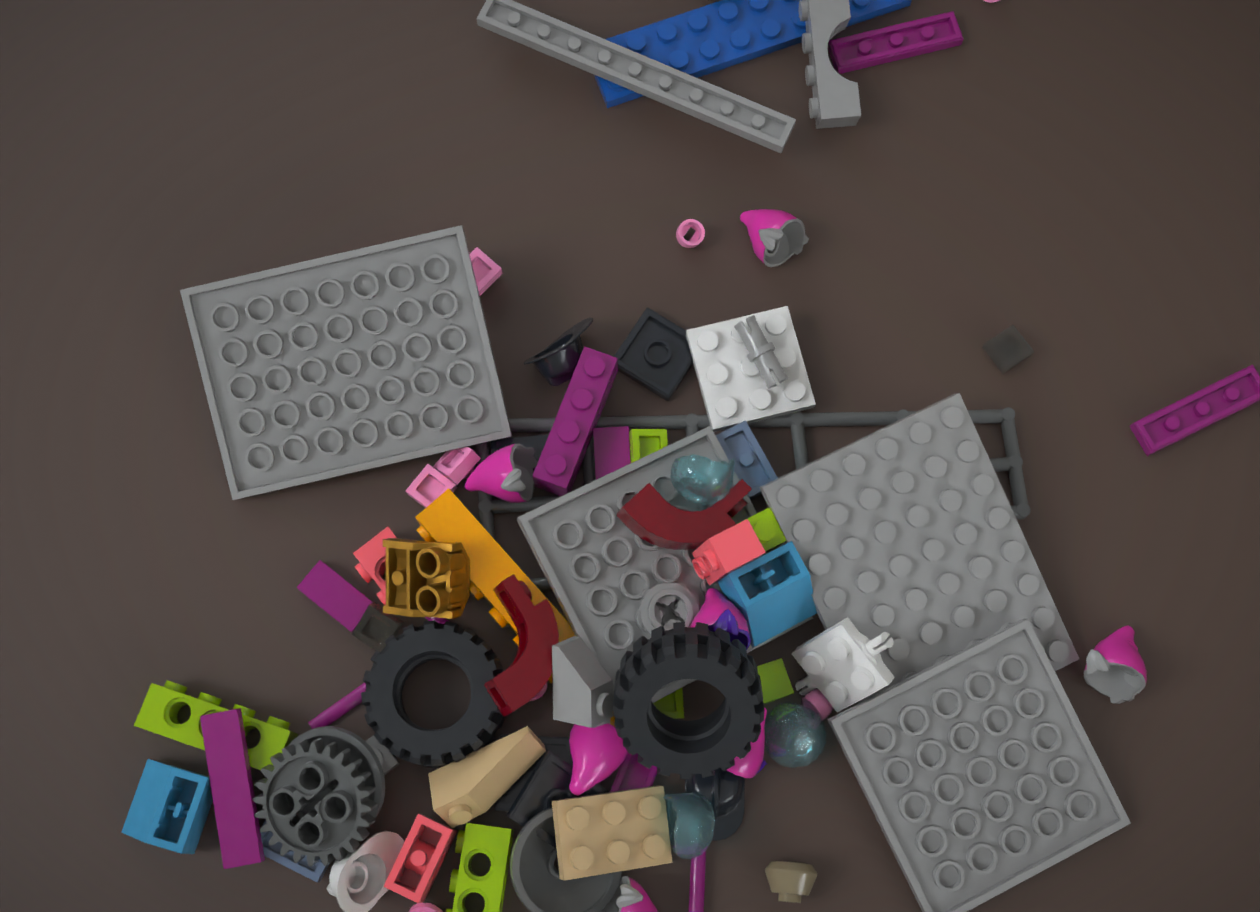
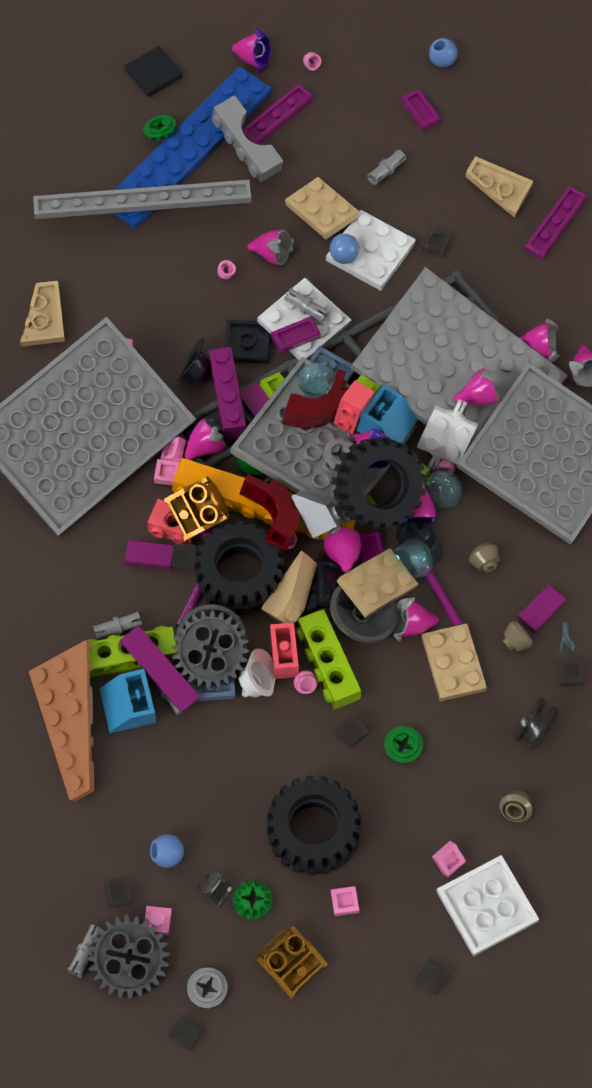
camera: 30 degrees left, 10 degrees down
(81, 774) = (67, 710): none -> nougat wing
(228, 679) = (117, 625): none -> light grey pin
(411, 171) = (45, 316): none -> tan wing
(721, 387) = (295, 335): none -> magenta tile
(867, 293) = (344, 248): none -> medium blue piece
(876, 213) = (322, 208): none -> tan plate
(909, 310) = (380, 250): none -> white plate
(928, 627) = (480, 390): none -> dark pink hat
(1003, 198) = (386, 167): none -> light grey pin
(1072, 587) = (543, 340): none -> dark pink hat
(1103, 138) = (420, 110): none -> magenta tile
(1151, 310) = (499, 184): none -> tan wing
(1185, 69) = (443, 52): none -> medium blue piece

